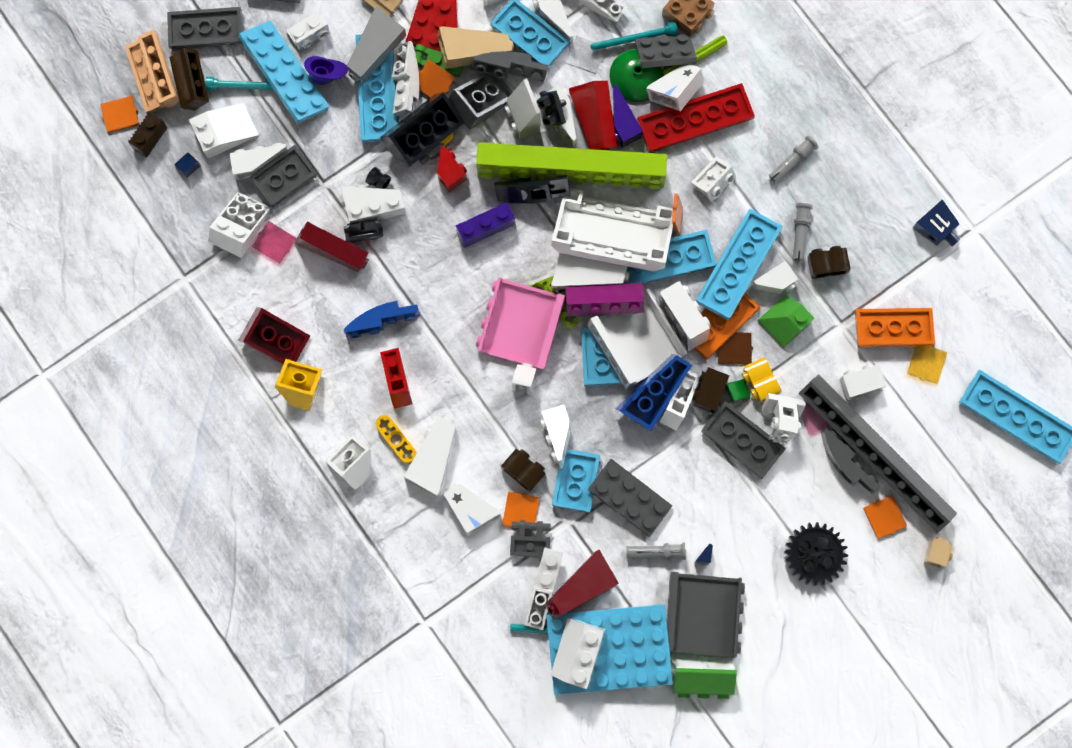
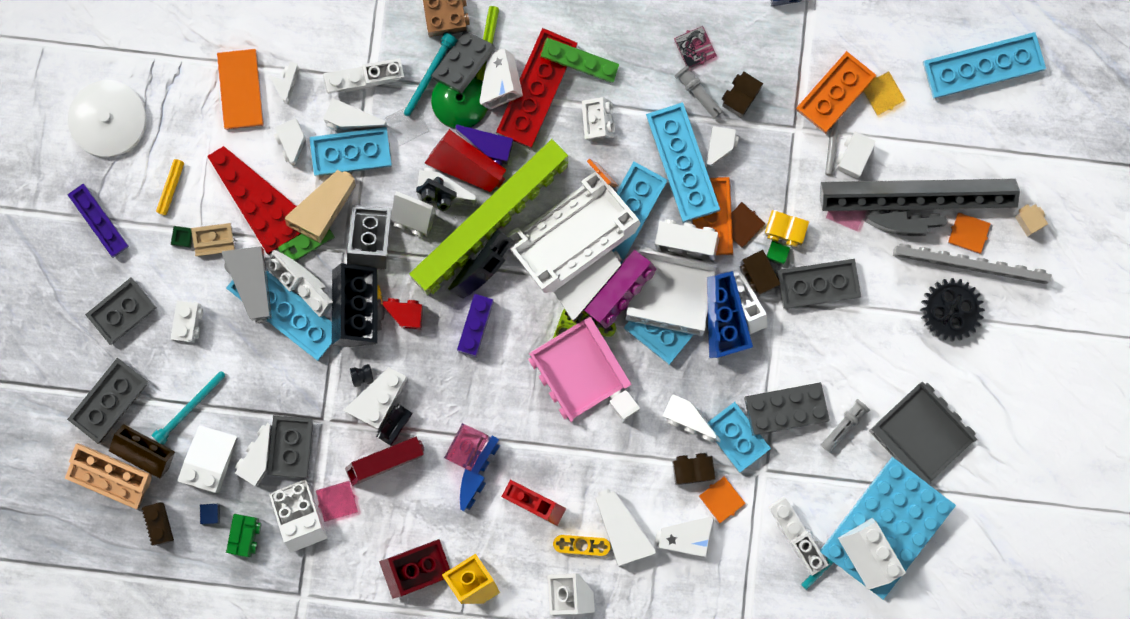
camera: 50 degrees left, 5 degrees up
(119, 114) = (117, 531): orange piece -> none
(191, 199) = (243, 535): none -> green brick
(283, 71) = (204, 371): medium azure plate -> none
(324, 70) = (233, 337): dark purple piece -> none
(392, 294) = (466, 446): none -> clear pink tile
(434, 79) = (320, 259): orange piece -> none
(506, 62) = (357, 195): dark grey slope -> none
(529, 545) = (755, 517): dark grey plate -> none
(584, 585) = (823, 504): dark red slope -> none
(704, 682) = (974, 480): bright green slope -> none
(705, 556) = (880, 392): dark blue slope -> none
(743, 128) = (579, 60): none -> bright green plate
(786, 320) = (756, 167): bright green slope -> none
(787, 412) = (839, 246): white tile -> none
(799, 154) = (638, 36): light grey pin -> none
(831, 201) = (695, 47): none -> piece
(852, 361) = (831, 149): none -> light grey bar
(868, 545) = (979, 265): none -> light grey plate

